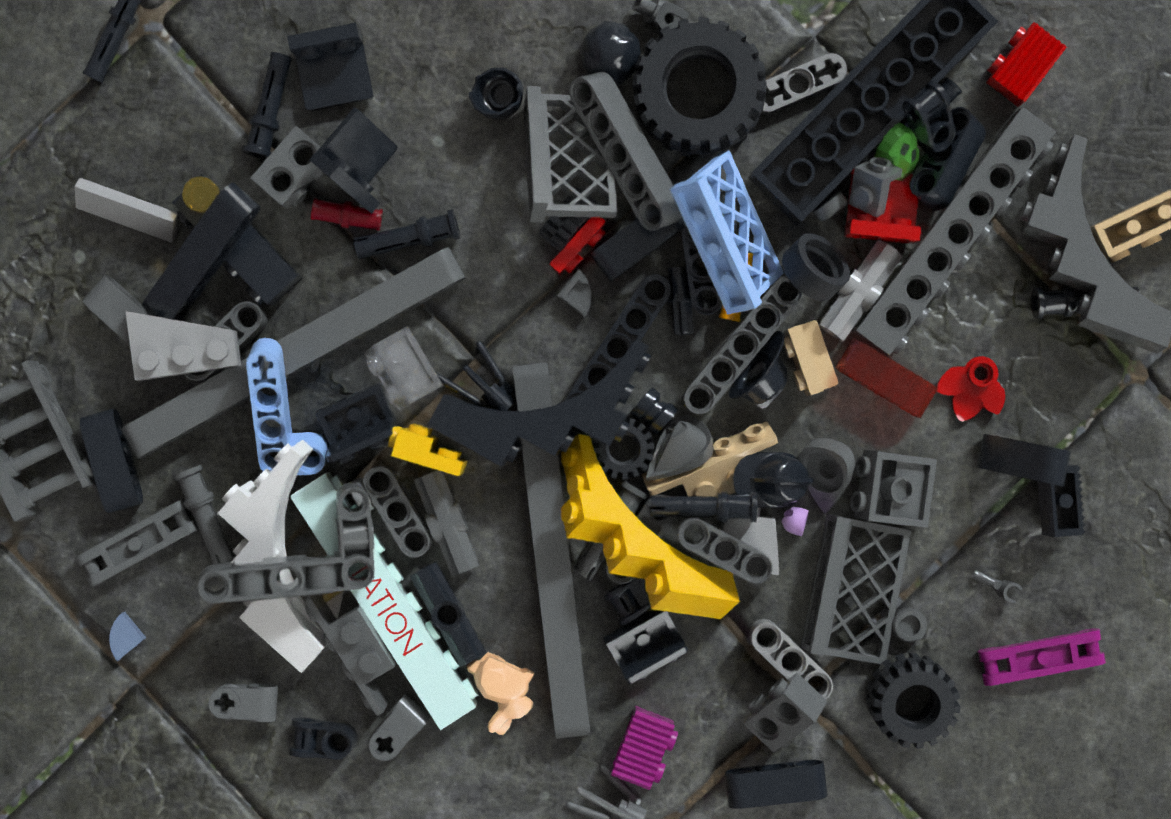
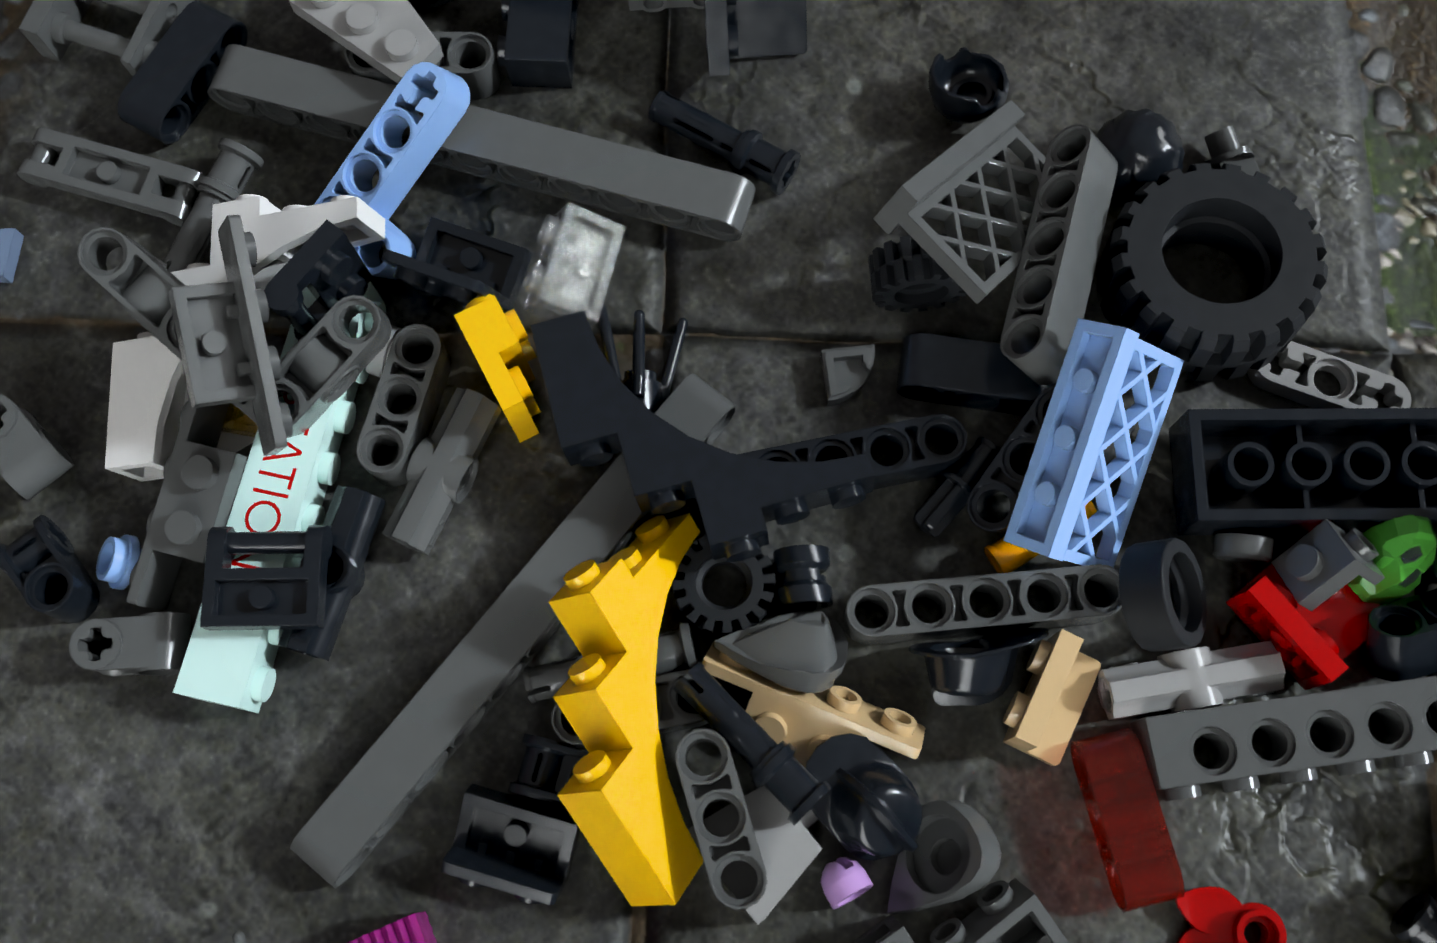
camera: 45 degrees right, 15 degrees down
(314, 569) = (226, 340): none -> dark grey bracket
(315, 495) = (327, 268): none -> black plate
(346, 214) = (683, 62): dark red pin -> none
(348, 703) = (117, 560): none -> light blue plate
(438, 654) = (265, 595): none -> black plate
(504, 685) = (304, 722): light nougat animal -> none
(569, 256) = (883, 316): red plate -> none

